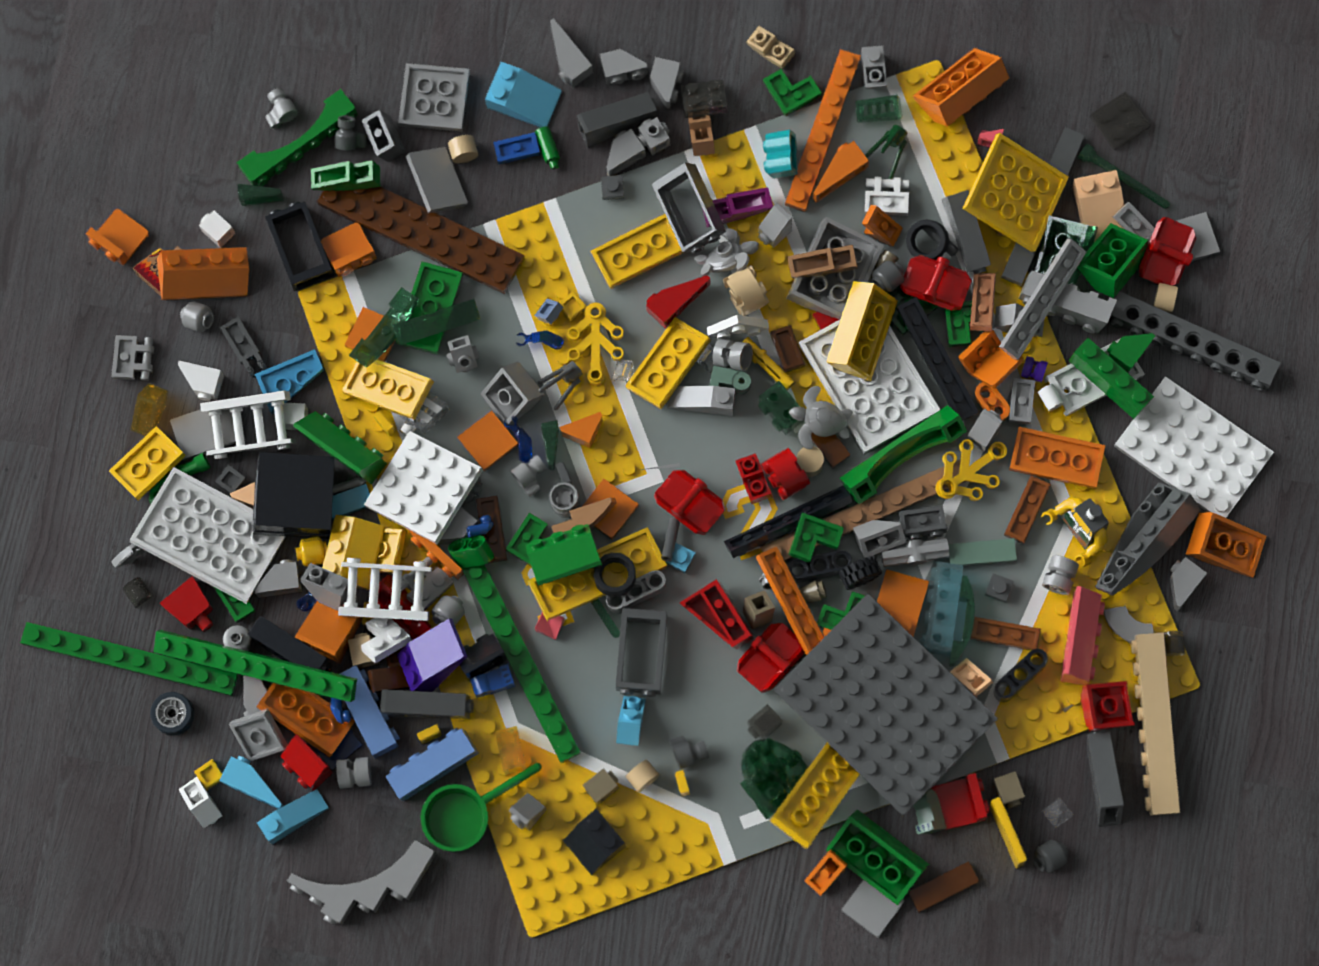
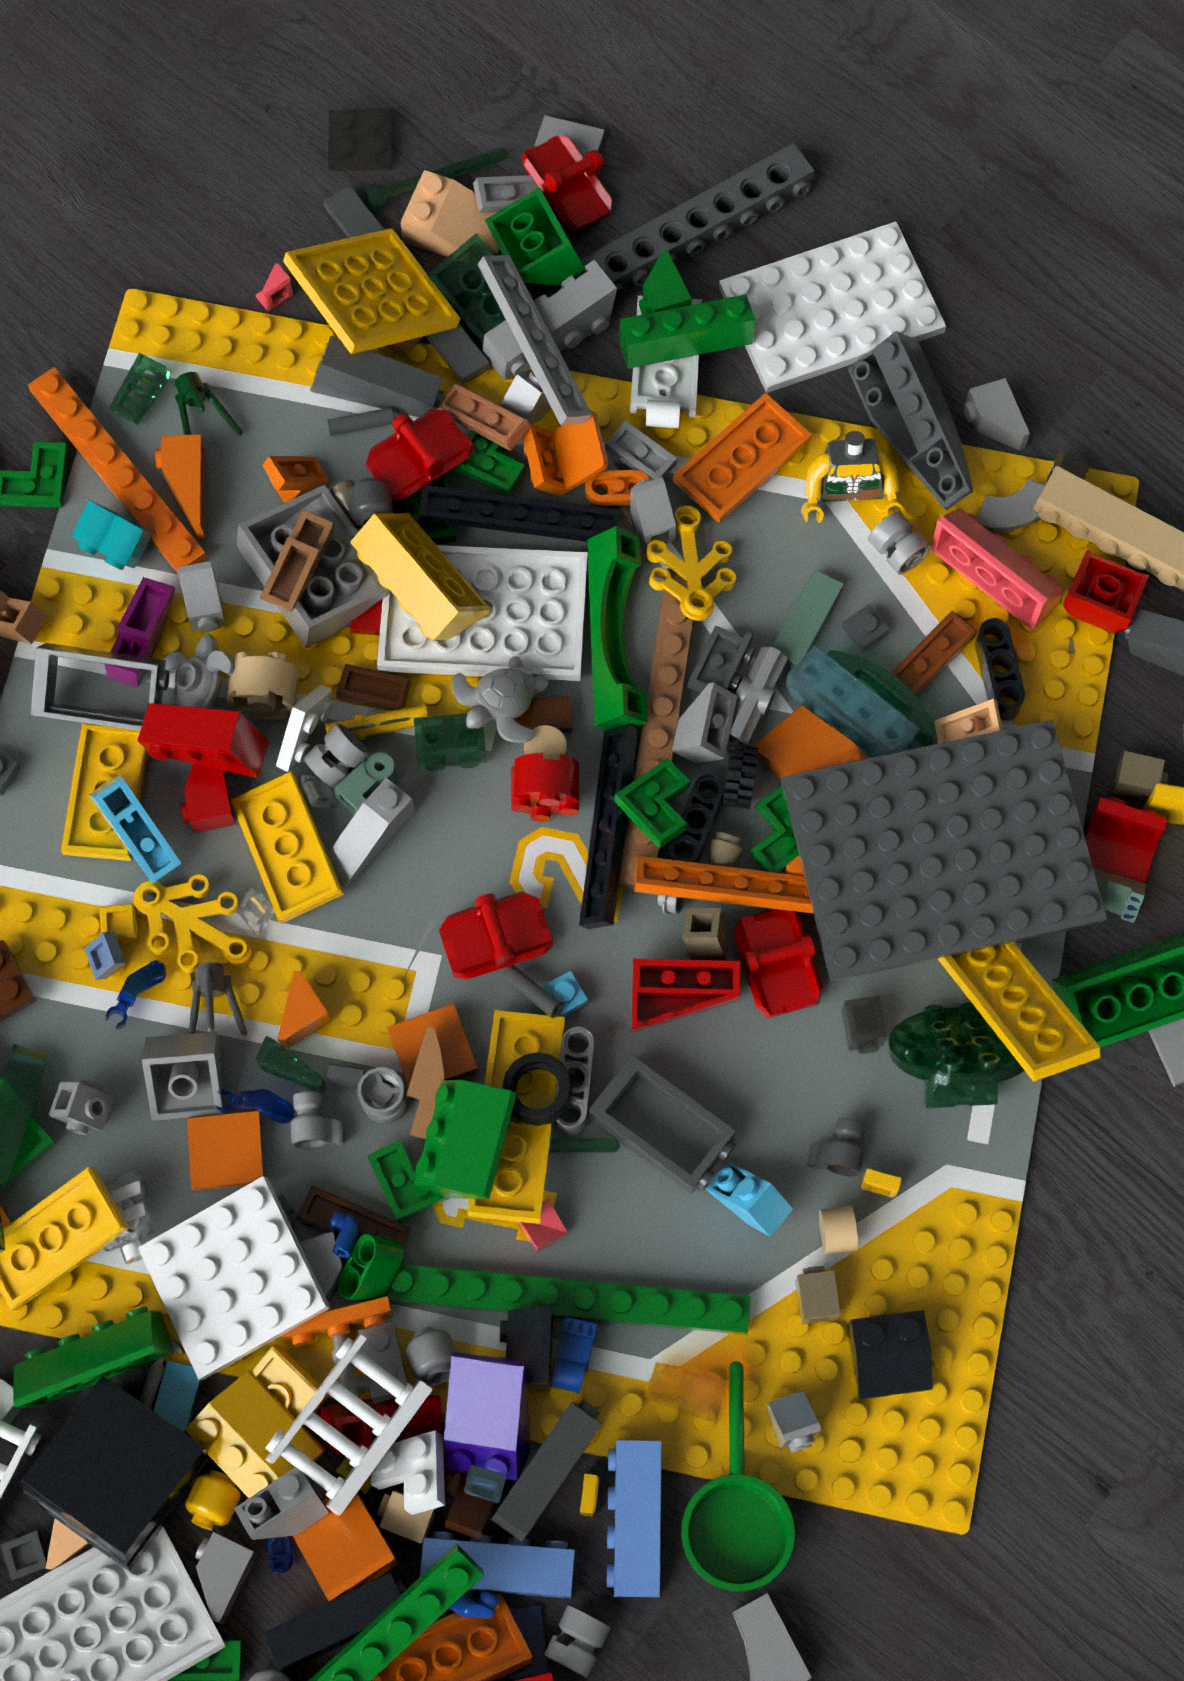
camera: 65 degrees left, 5 degrees down
(385, 424) = (101, 1277): yellow tile -> none
(400, 677) = (485, 1484): none -> clear light blue tile
(624, 279) = (135, 828): none -> medium azure slope
(692, 281) = (204, 738): none -> red wedge
(753, 479) = (519, 837): red slope -> none
(826, 872) = (1117, 1070): orange slope -> none
(873, 67) = (81, 361): light grey slope -> none
(890, 202) = (273, 441): white plate -> none
(916, 227) = (337, 414): black tyre -> none
(962, 86) = (184, 277): orange slope -> none
(1027, 509) = (784, 533): dark orange tile -> none
(1039, 371) = (612, 413): dark purple wheel -> none
(1165, 297) = (620, 217): tan piece -> none
(1225, 544) = (976, 341): orange slope -> none

